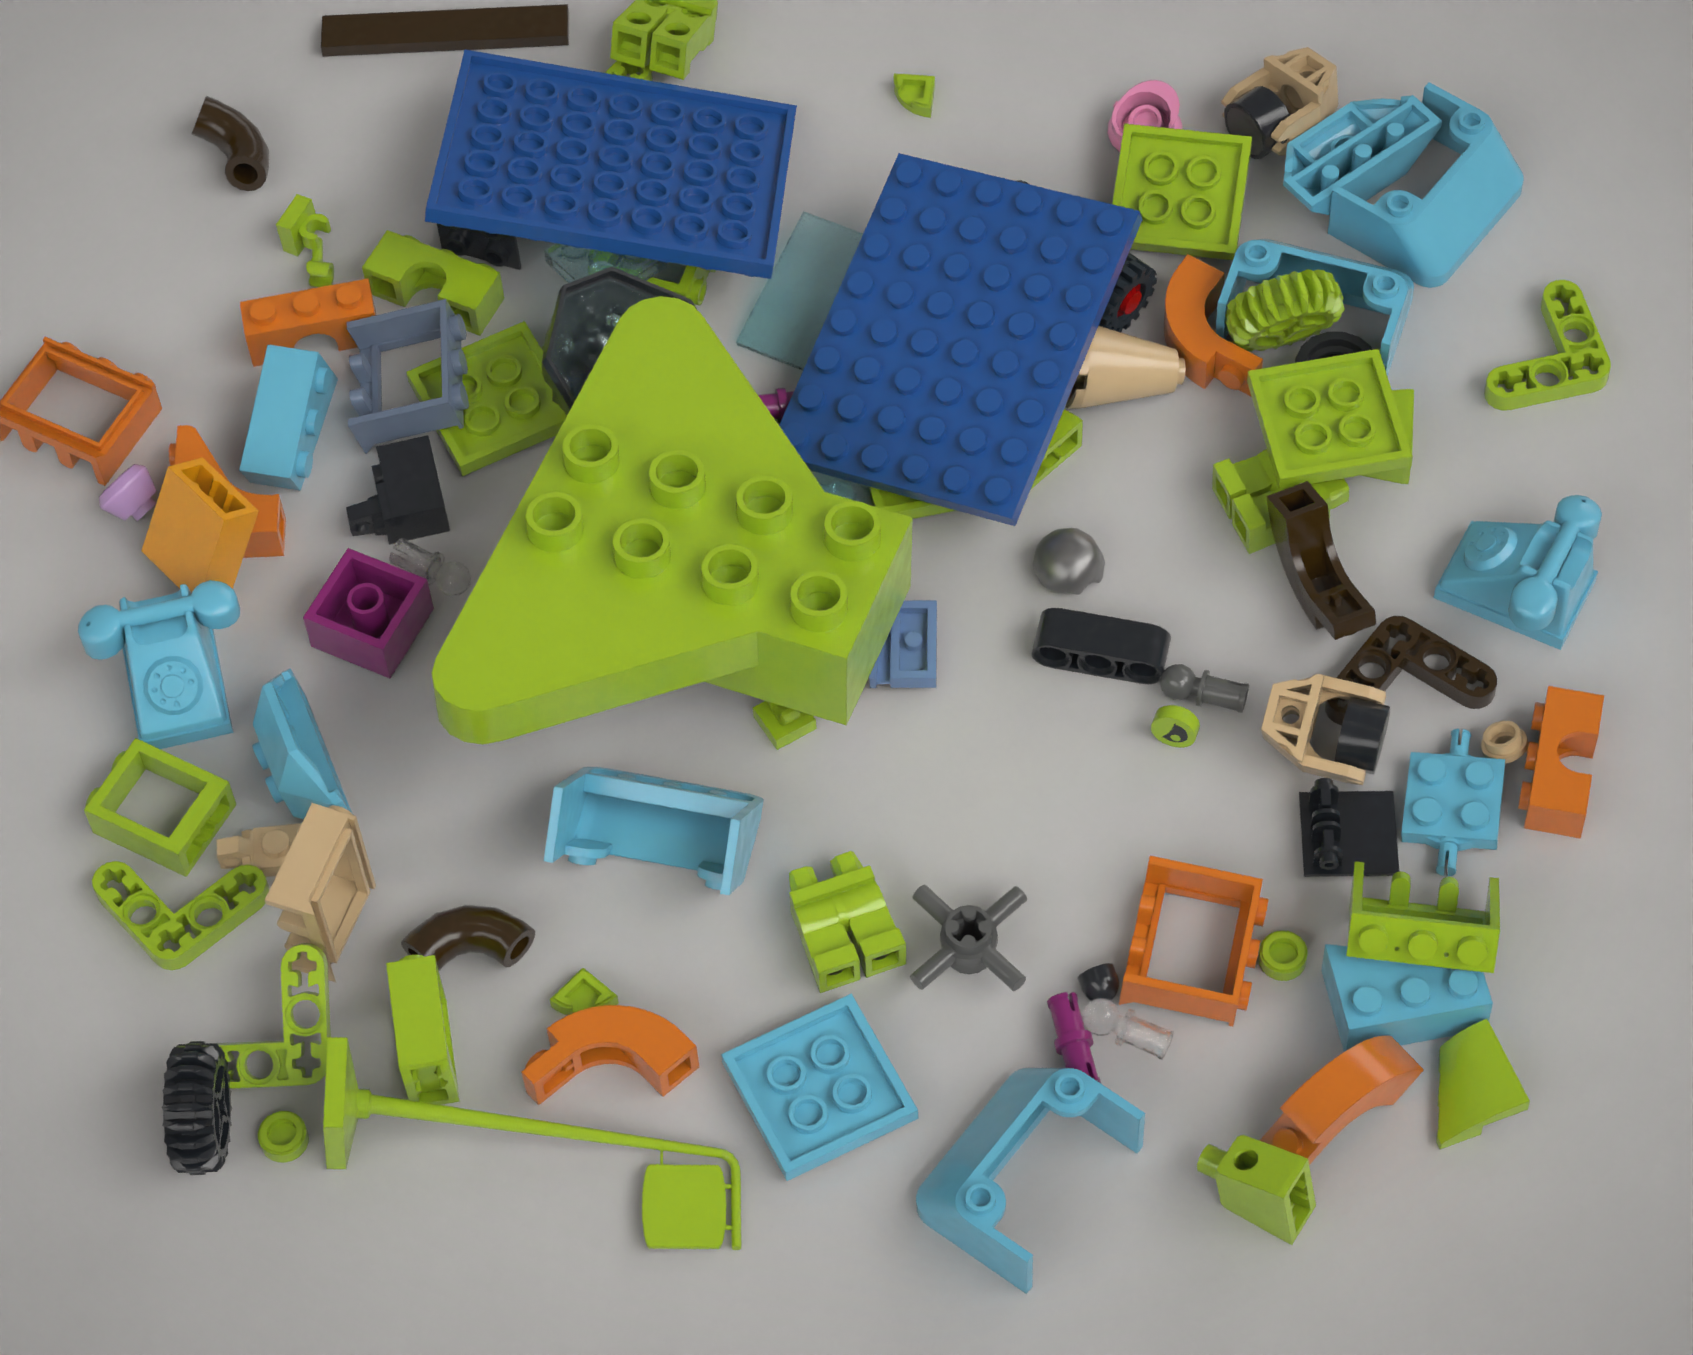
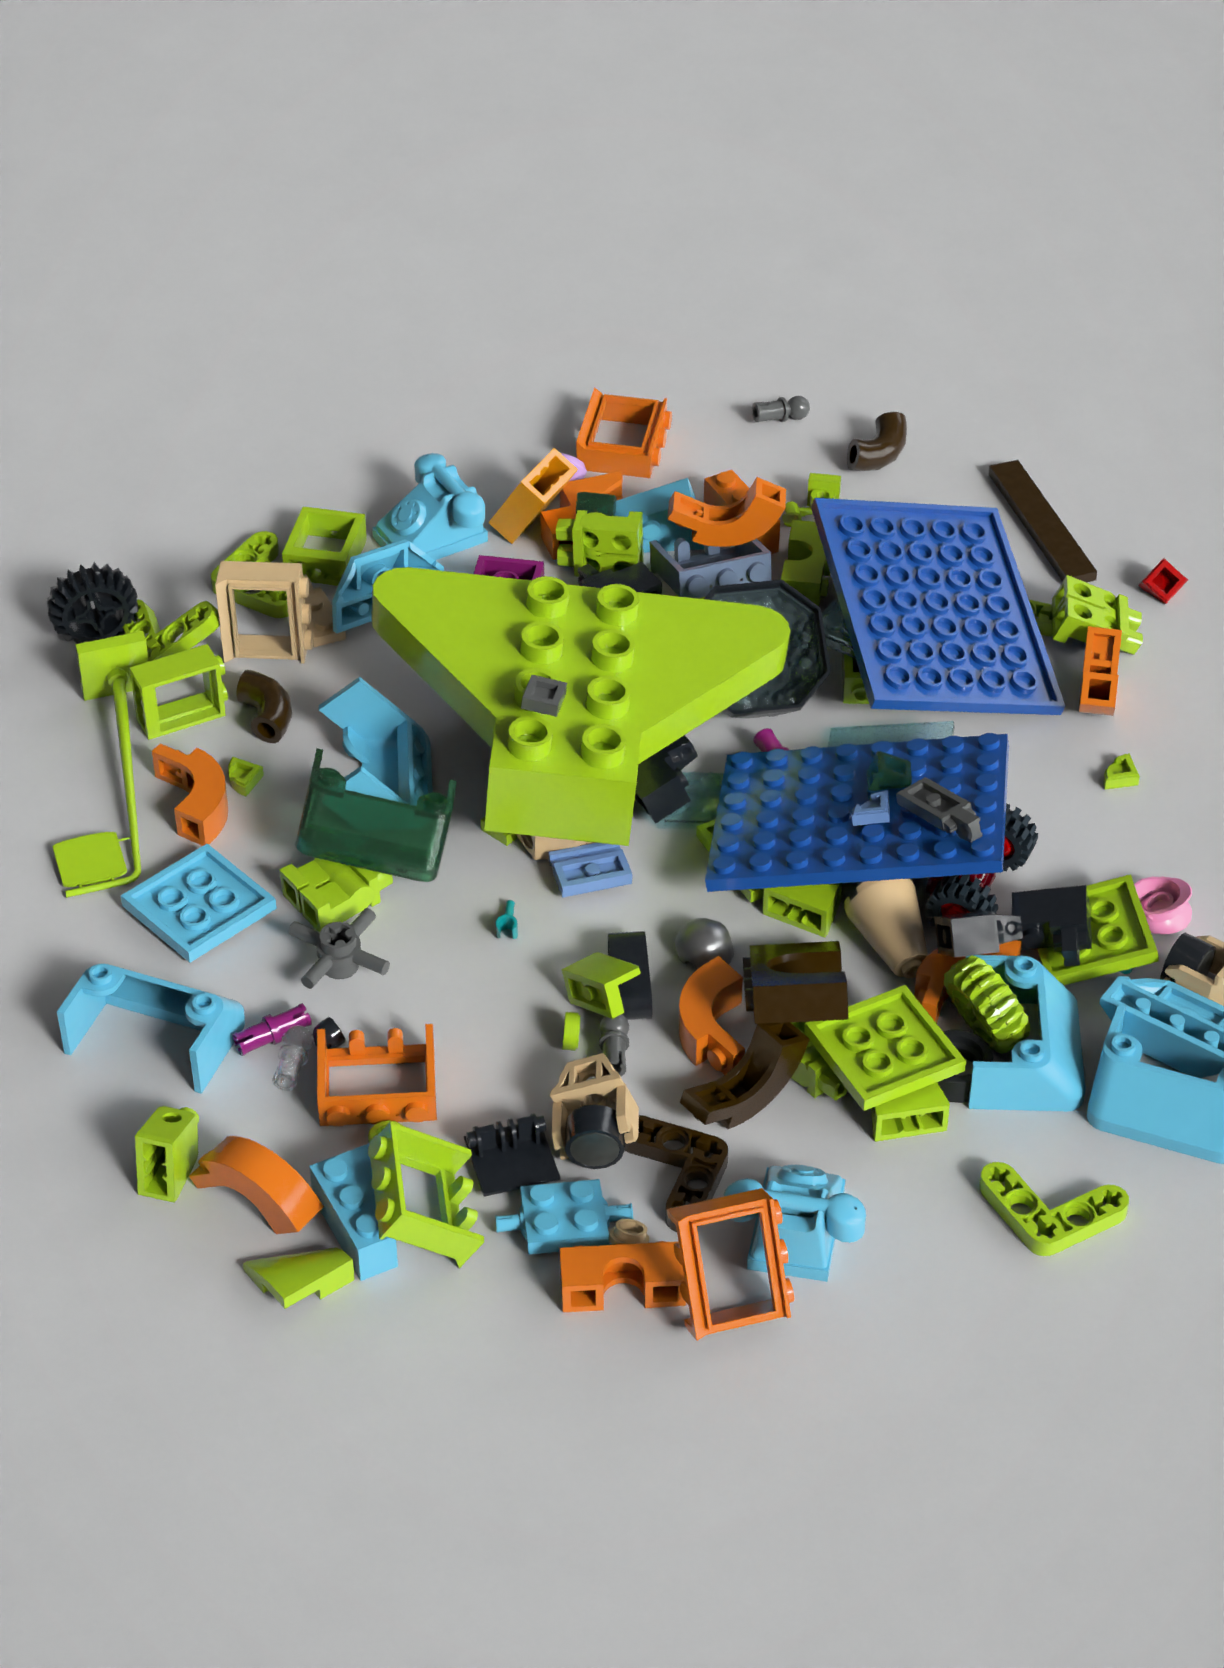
camera: 70 degrees right, 15 degrees down
(102, 226) = (796, 408): none -> dark grey pin
(258, 466) = (596, 503): none -> clear green slope
(320, 481) = (600, 541): none -> lime hips
(372, 315) = (730, 523): none -> orange arch
(773, 64) = (1100, 671): none -> orange arch
(776, 558) = (544, 695): none -> dark grey plate
(807, 868) = (371, 829): none -> clear green windscreen
(927, 284) = (888, 772): none -> clear green slope
(967, 763) = (507, 920): none -> teal hand
(991, 312) = (872, 811): none -> medium blue tile
(1038, 240) = (941, 808): none -> dark grey hinge
(1126, 669) = (595, 982): none -> lime panel
(1175, 210) = (1055, 920): none -> black hinge
(1191, 594) = (704, 998): none -> orange arch
(1203, 283) = (975, 932): none -> hinge
(1248, 492) = (795, 982): none -> dark brown arch
(1591, 606) = (689, 1256): none -> orange window

